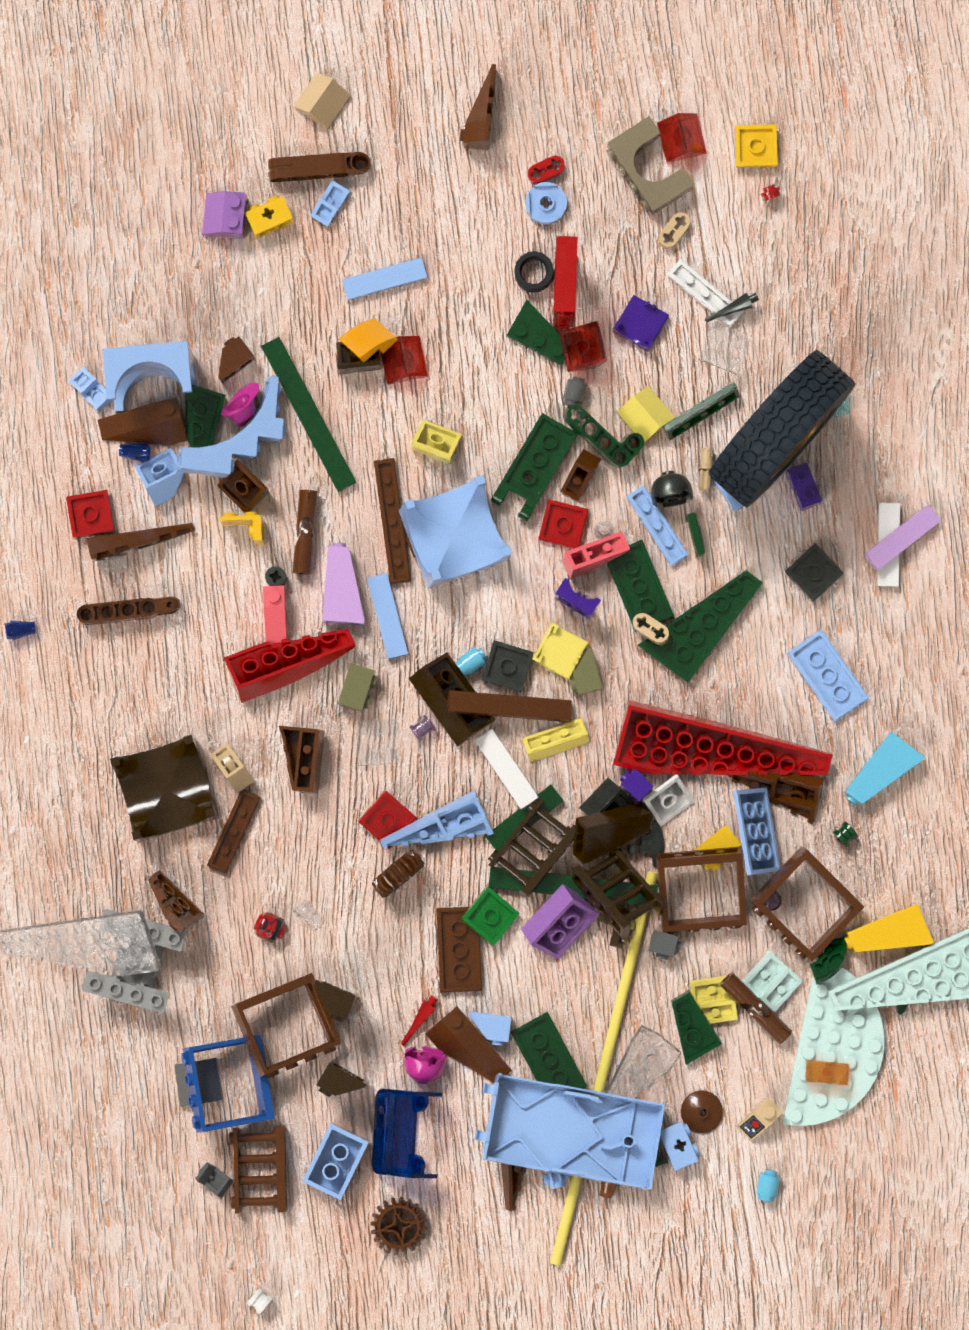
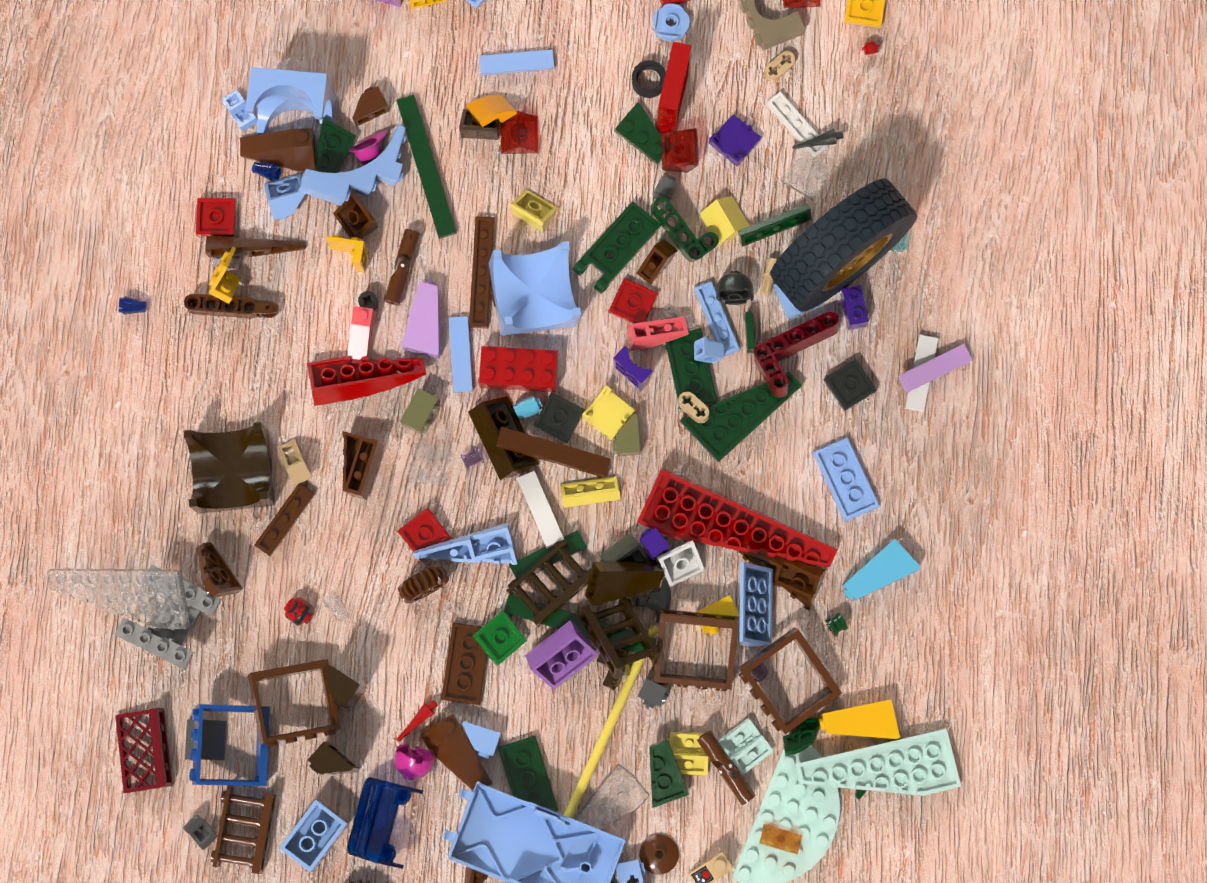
camera: 10 degrees right, 5 degrees down
(116, 585) = (224, 283): none -> yellow bracket
(149, 1095) = (160, 750): none -> dark red fence
(453, 621) = (518, 369): none -> red brick
(655, 564) = (708, 350): none -> light blue brick
(742, 544) = (791, 347): none -> dark red beam

